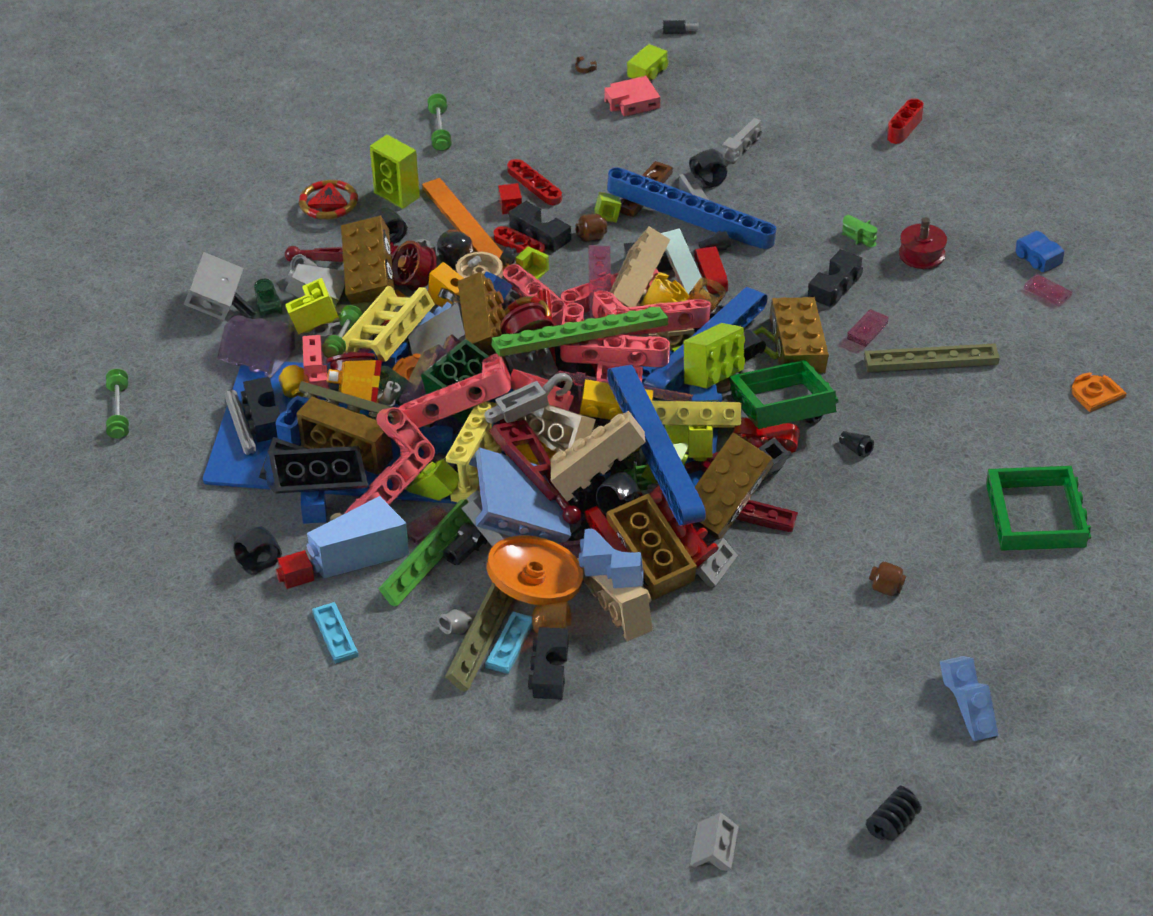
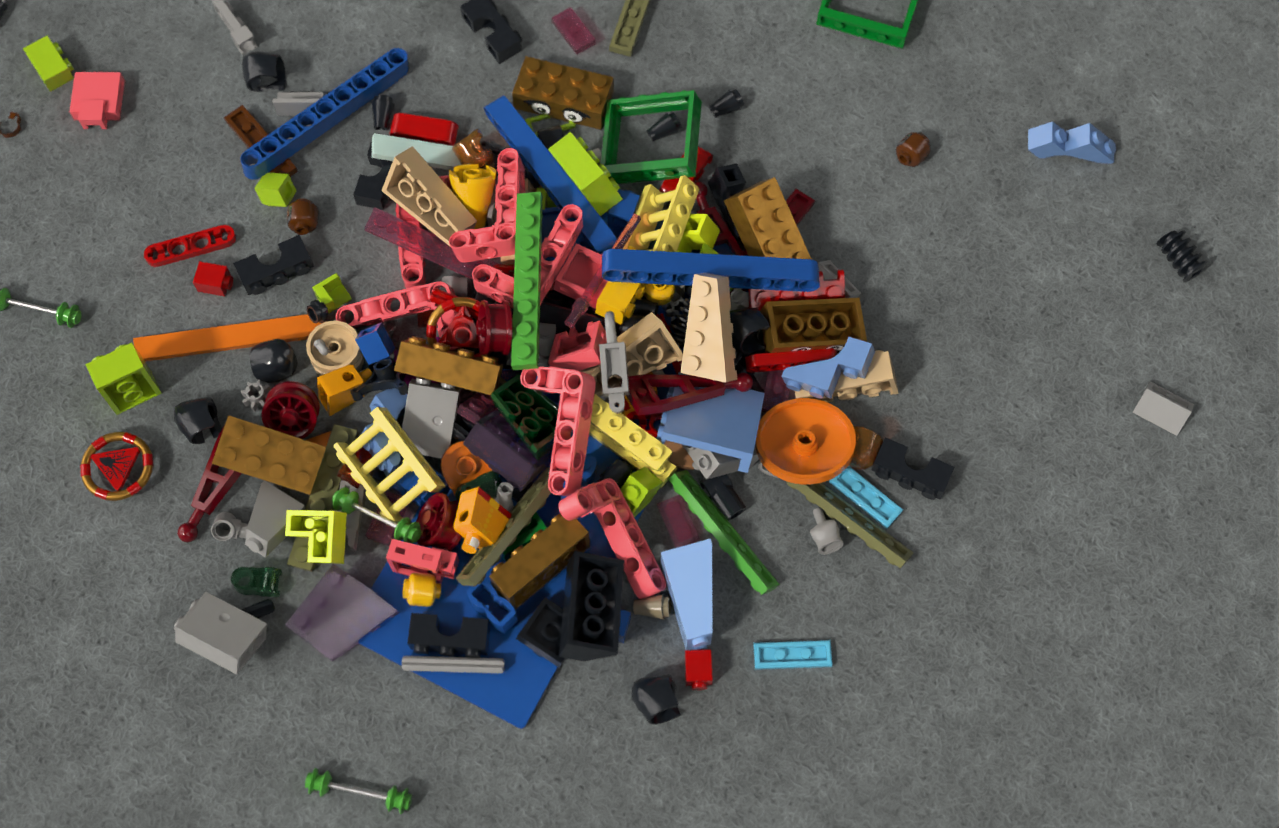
camera: 70 degrees left, 25 degrees up
(510, 237) = (286, 286): red beam -> none

